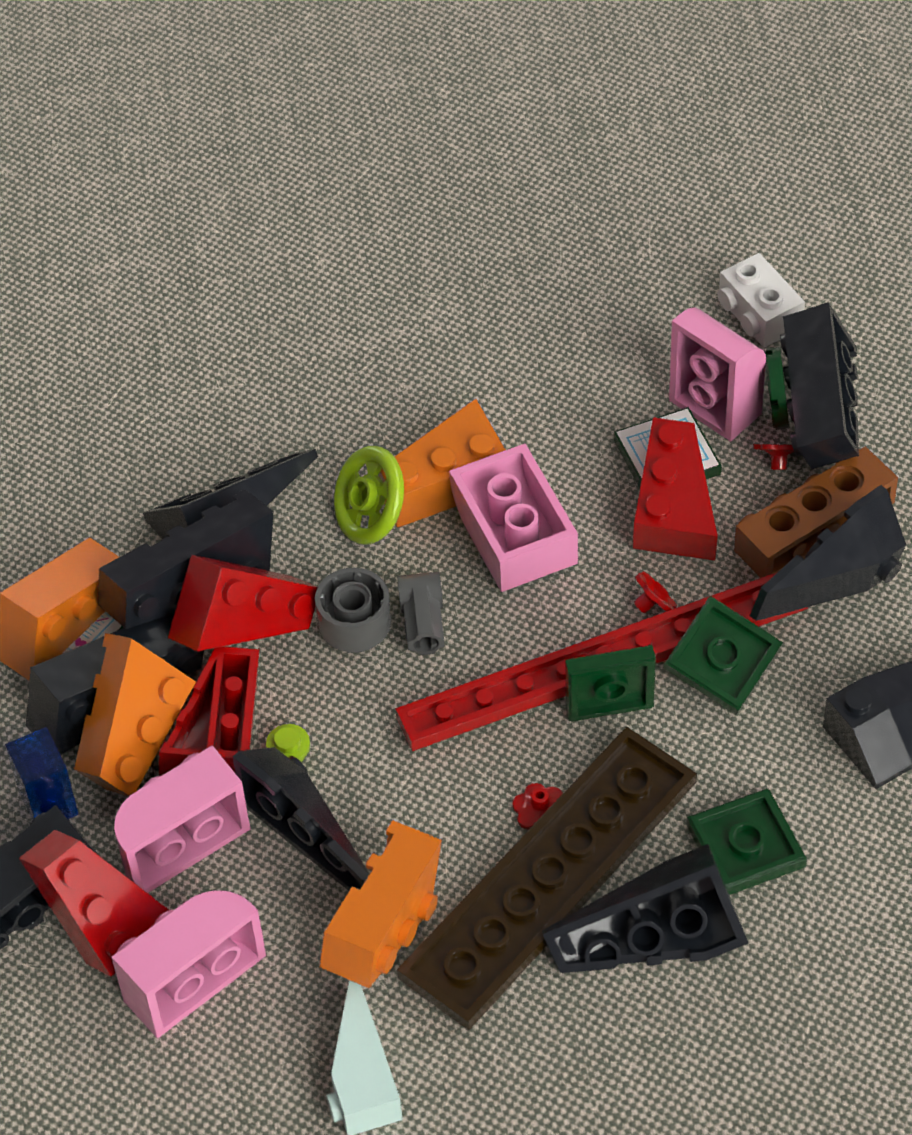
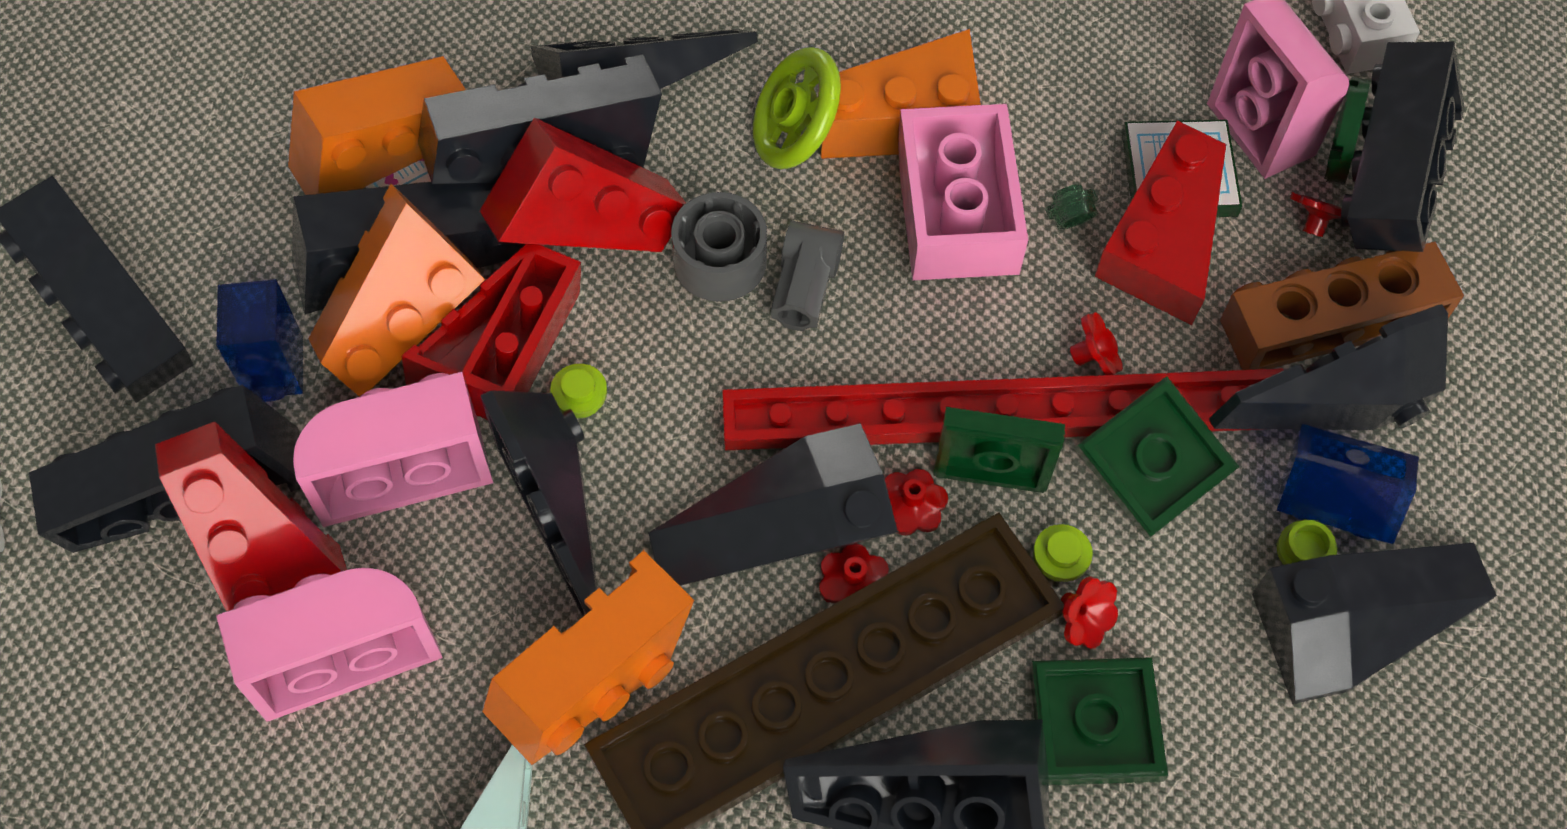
camera: 15 degrees right, 10 degrees up
(477, 770) = (793, 505): none -> black wedge
(561, 743) = (917, 510): none -> red plant
(598, 503) = (1072, 206): none -> clear green plate
(681, 740) = (1062, 553): none -> lime plate
(715, 772) = (1089, 612): none -> red plant
(844, 675) = (1305, 541): none -> lime plate
(861, 629) = (1348, 484): none -> clear blue brick

